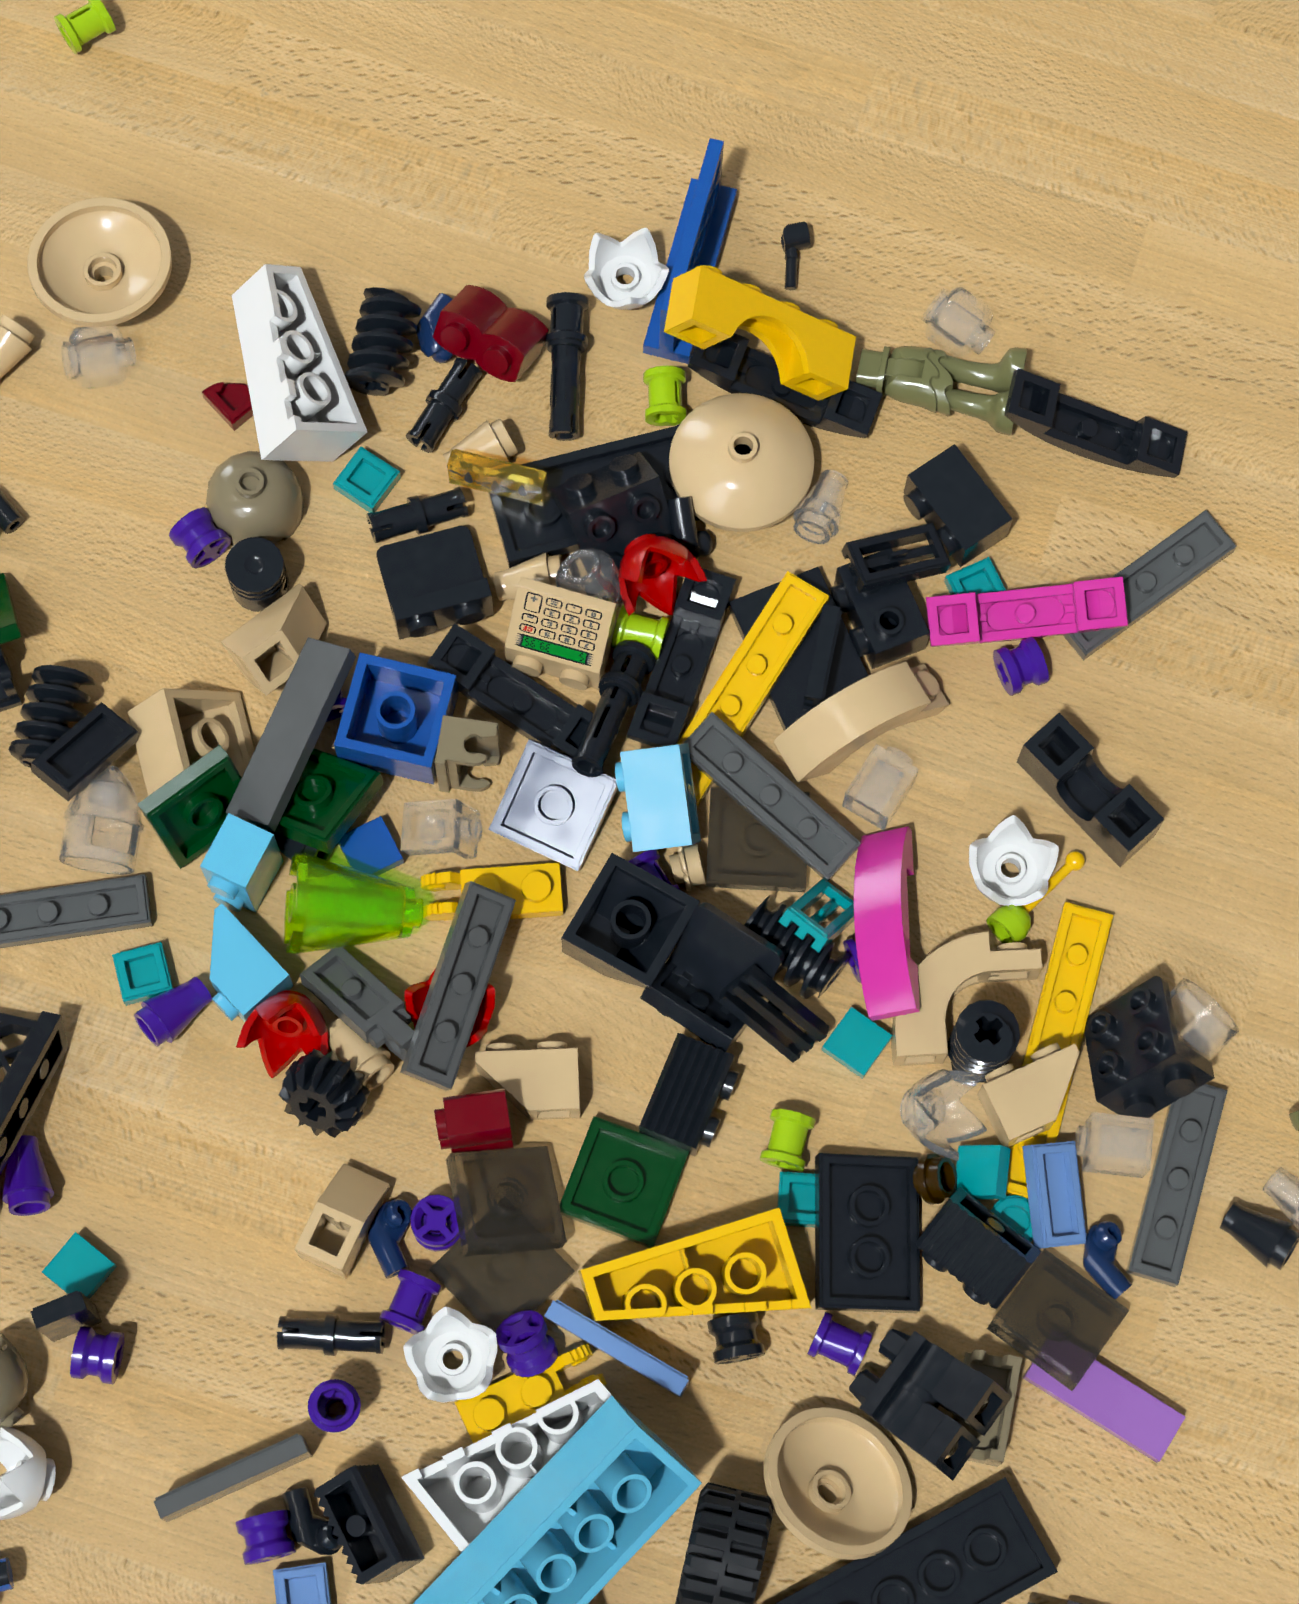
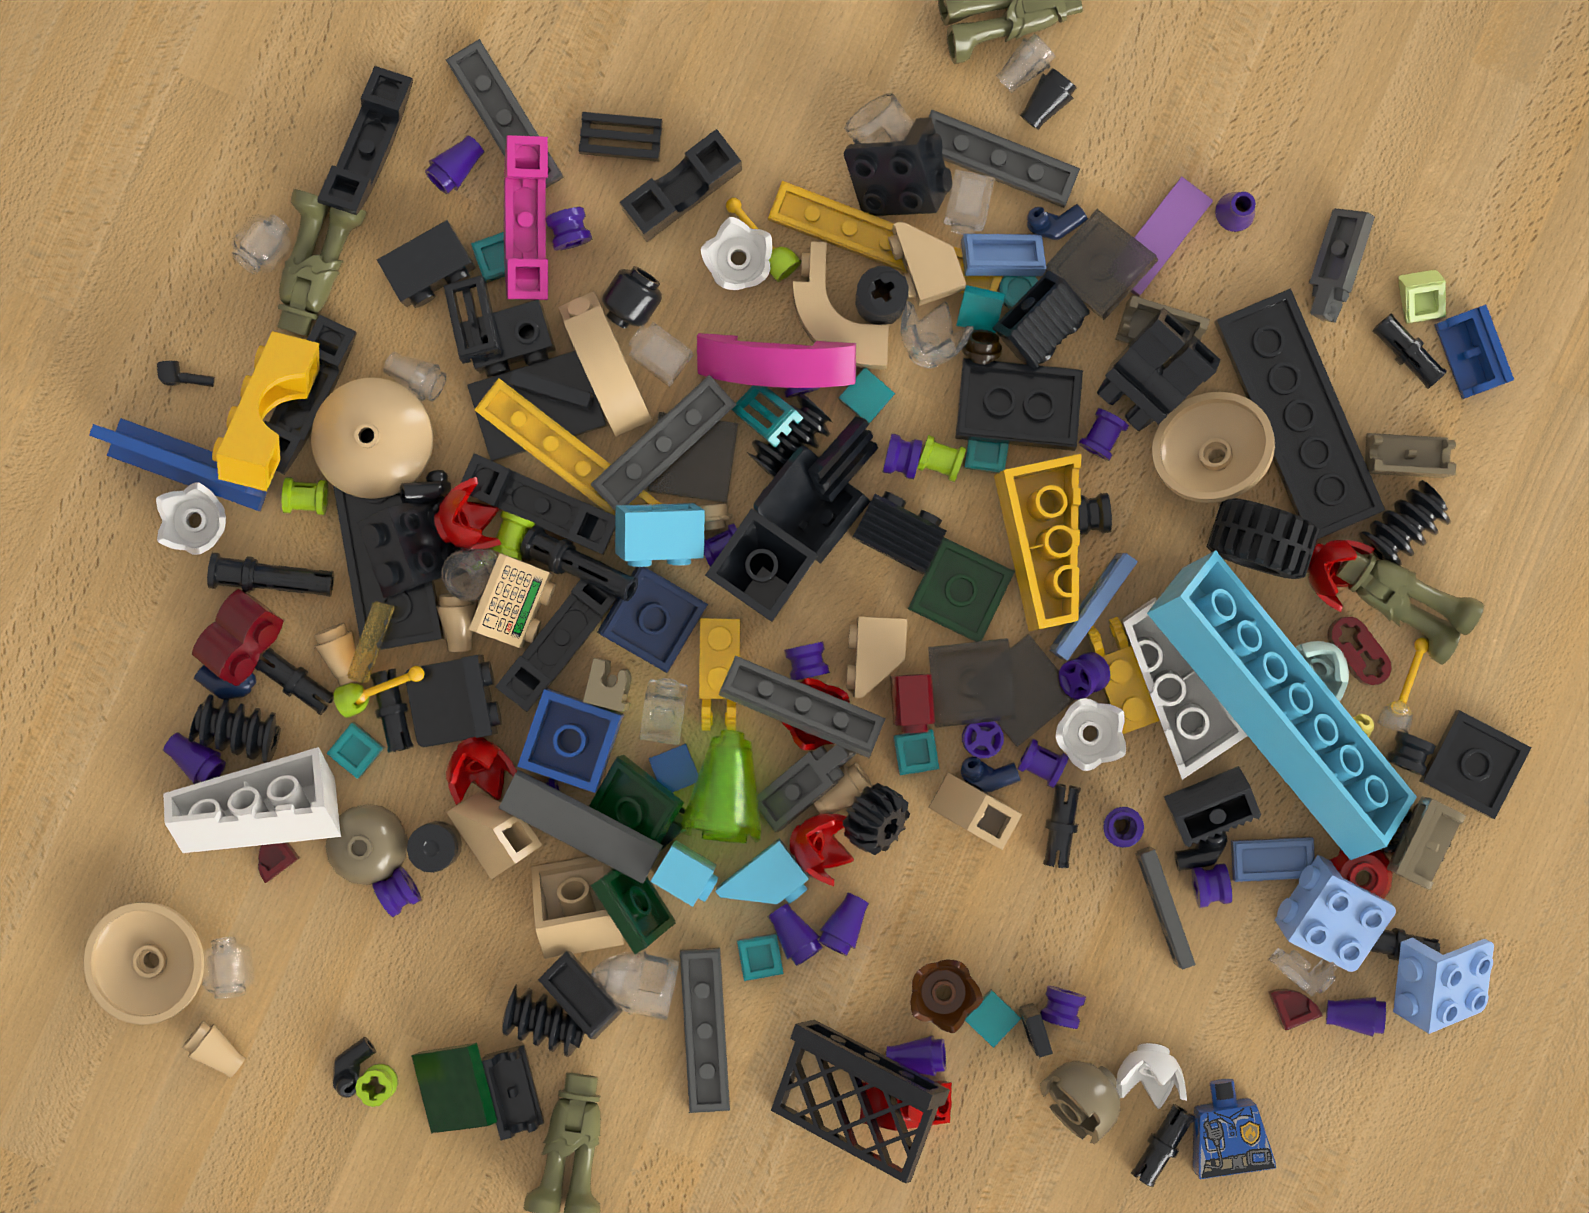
camera: 80 degrees left, 15 degrees up
(90, 1182) = (950, 1012): none -> reddish brown piece
(188, 1071) = (844, 925): none -> dark purple cone
(342, 301) = (194, 759): none -> dark purple cone
(361, 611) = (478, 763): none -> red piece
(413, 1143) = (916, 752): none -> teal tile
(436, 470) = (353, 698): none -> hinge
(517, 995) = (807, 661): none -> dark purple wheel
(785, 1088) = (902, 456): none -> dark purple wheel
(946, 746) = (632, 297): none -> black head
(1080, 529) = (452, 166): none -> dark purple cone
(1138, 1498) = (1230, 217): none -> dark purple cone
(1141, 681) = (624, 121): none -> black tile

